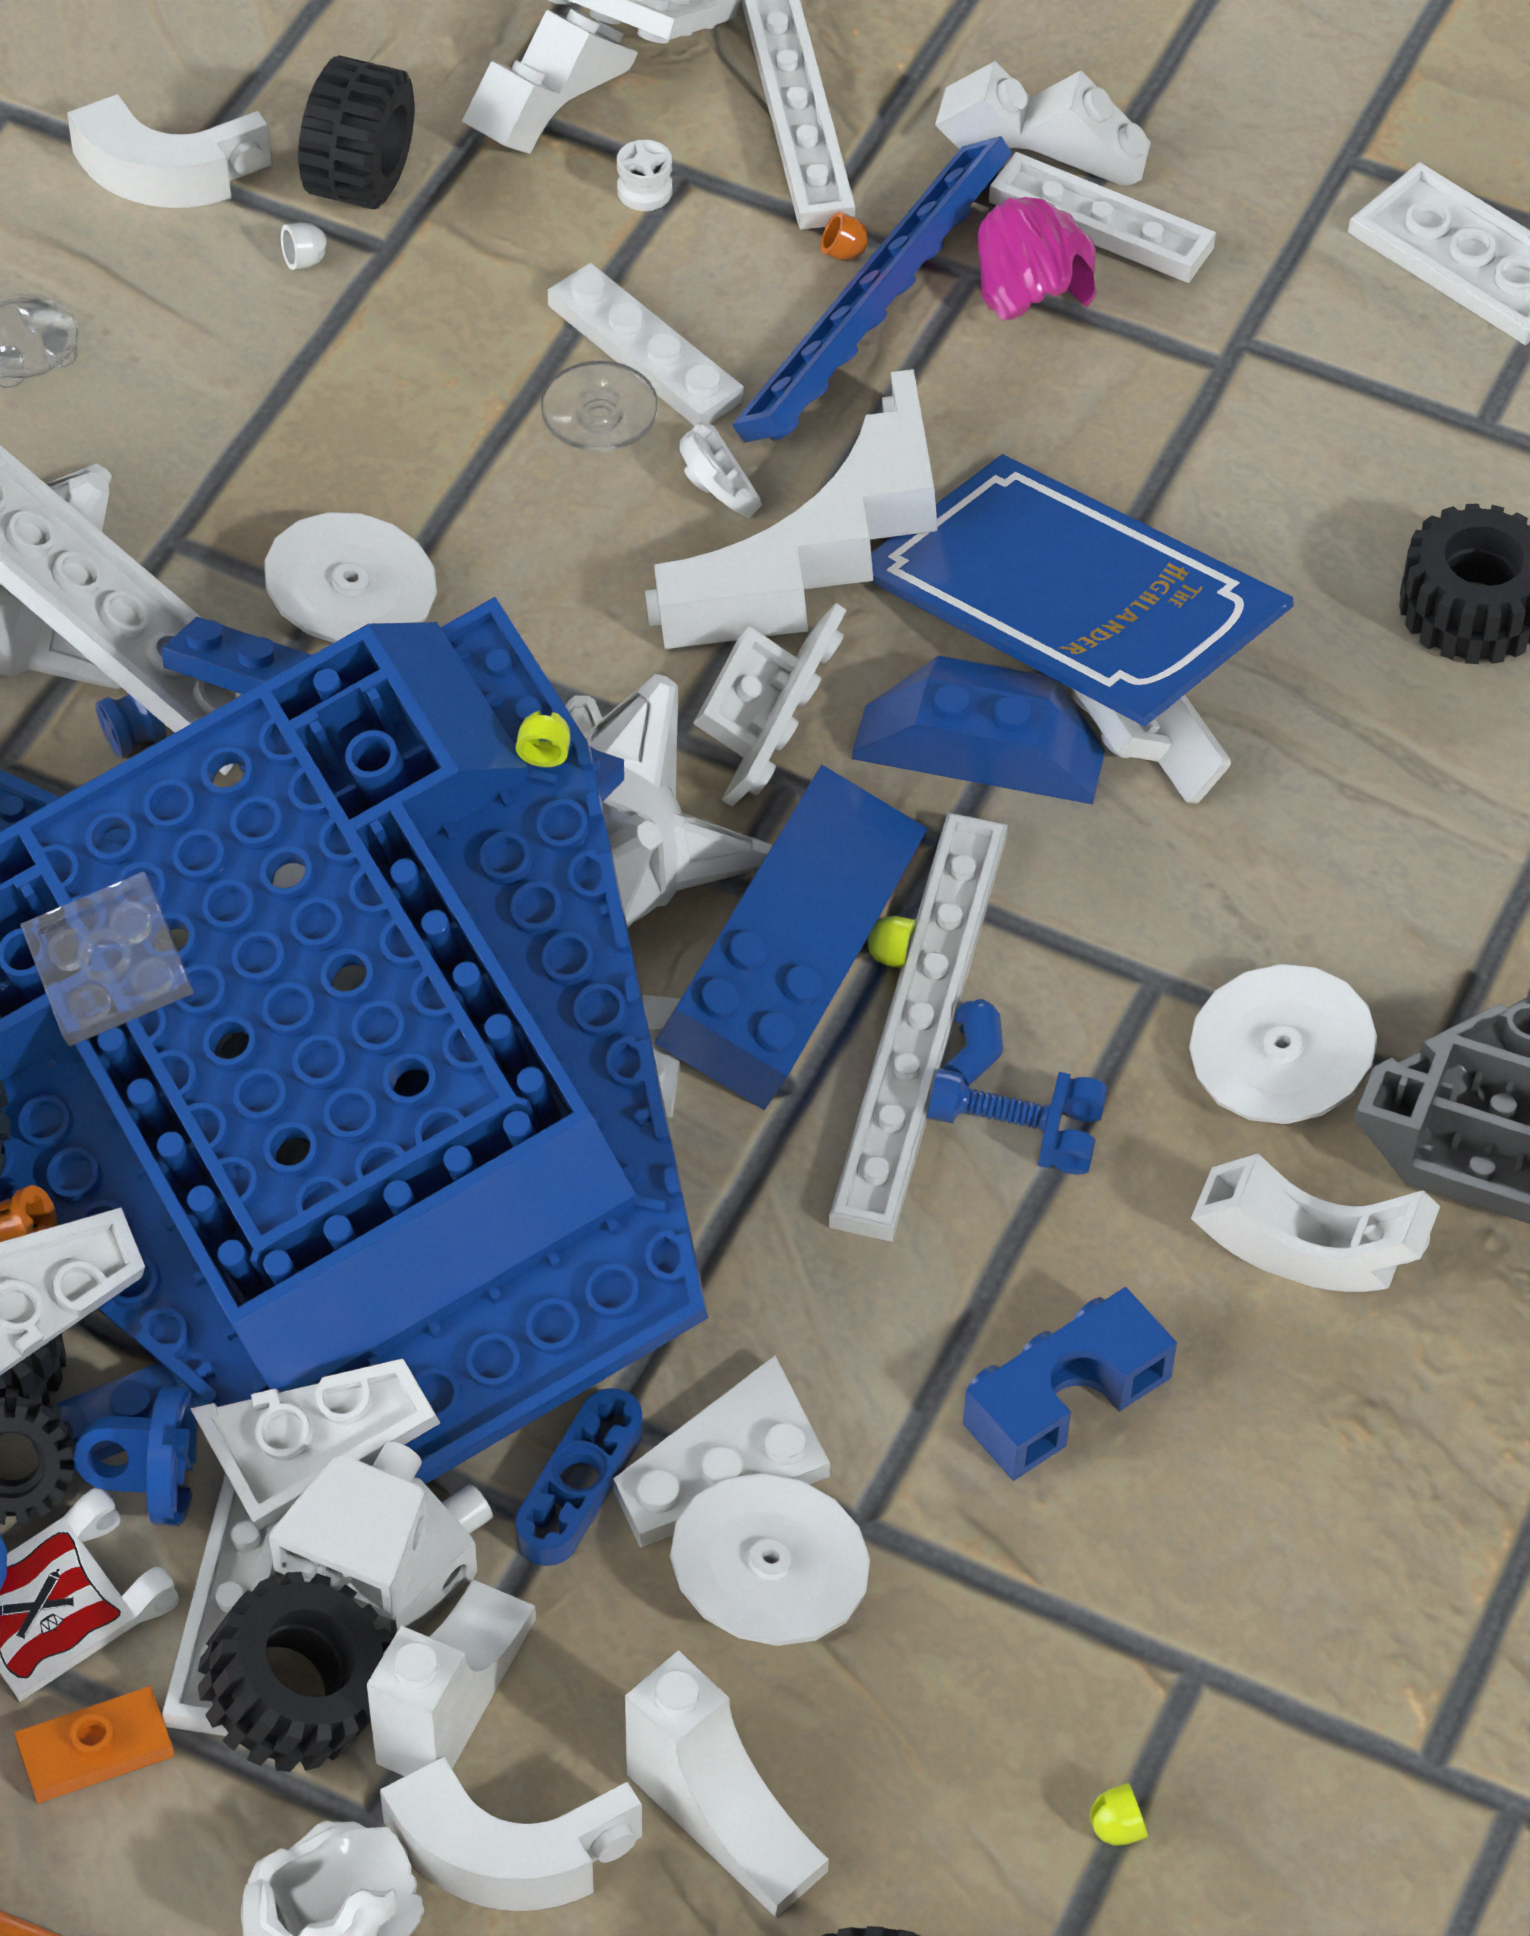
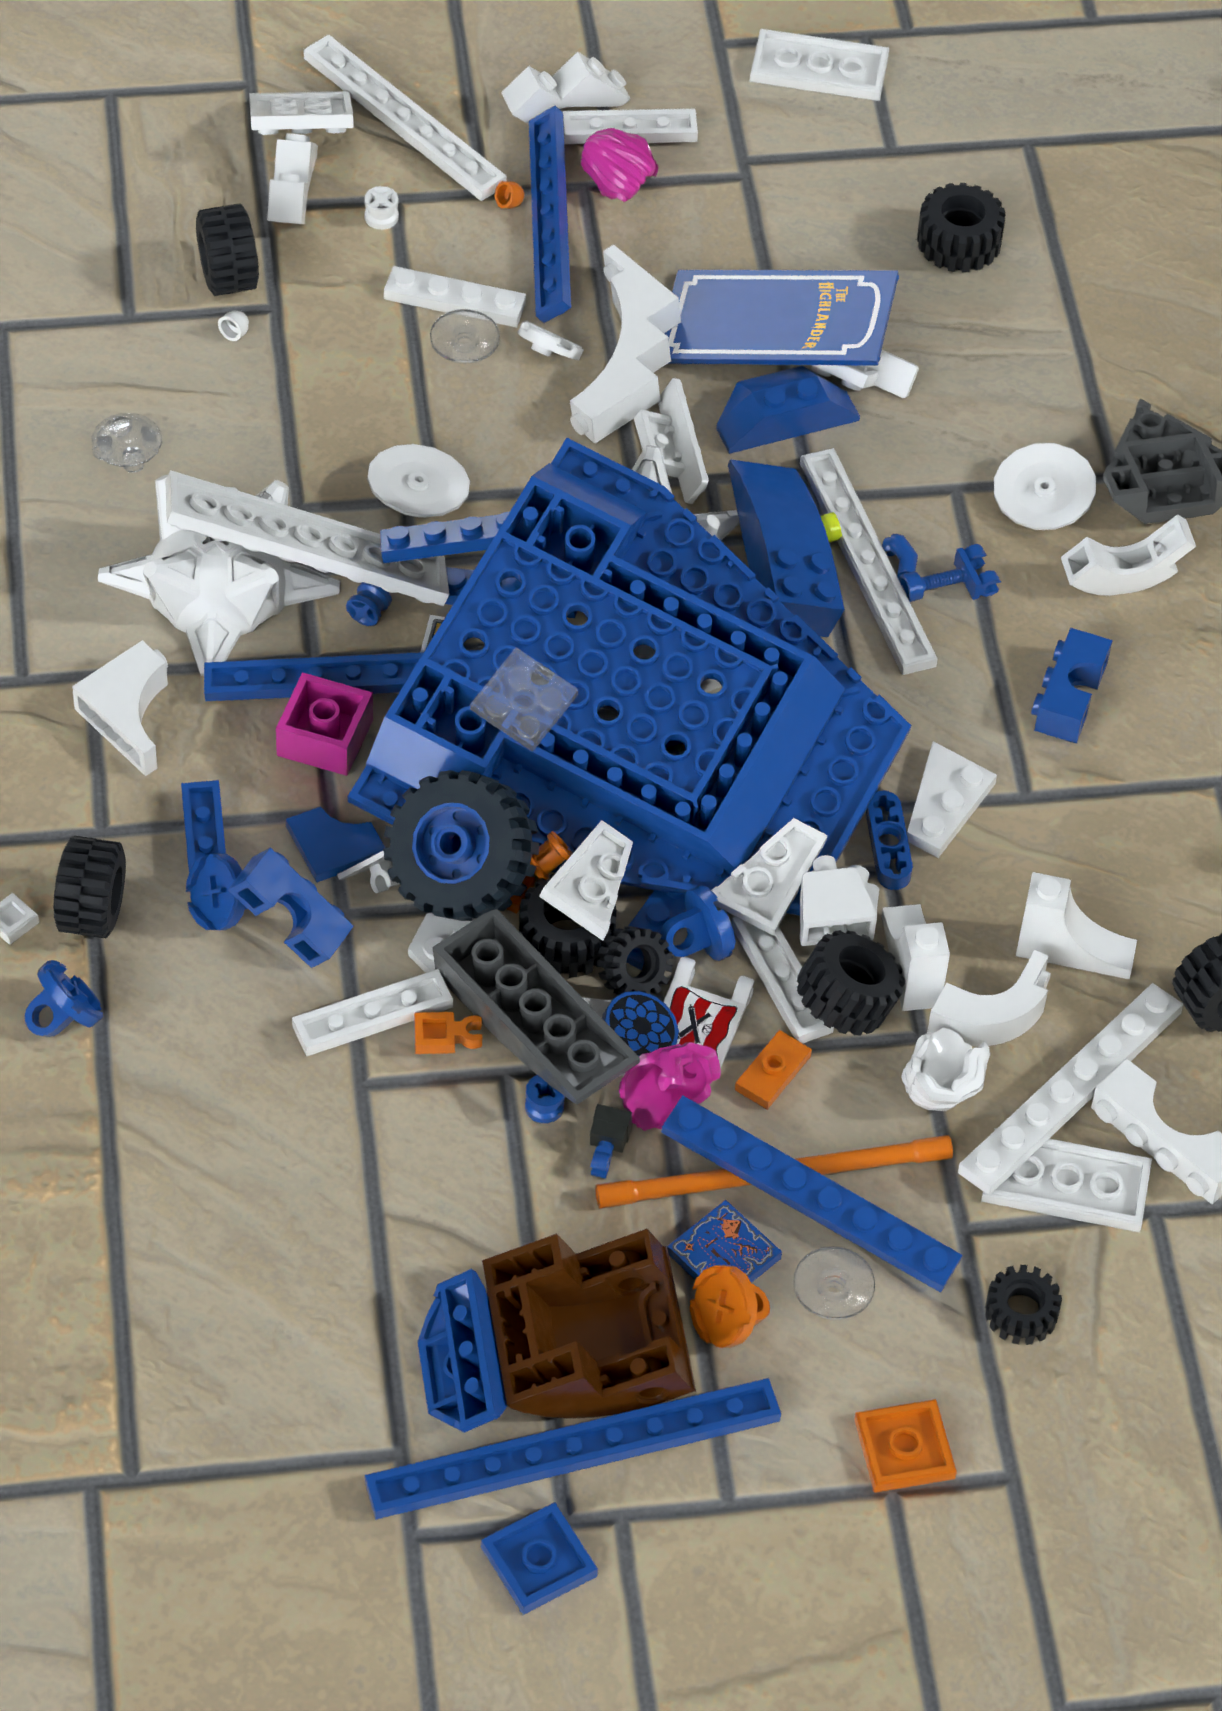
camera: 35 degrees left, 0 degrees up
(163, 166) = (120, 318): white arch -> none
(540, 752) = (649, 494): neon yellow hinge -> none
(770, 1559) = (1009, 827): white piece -> none

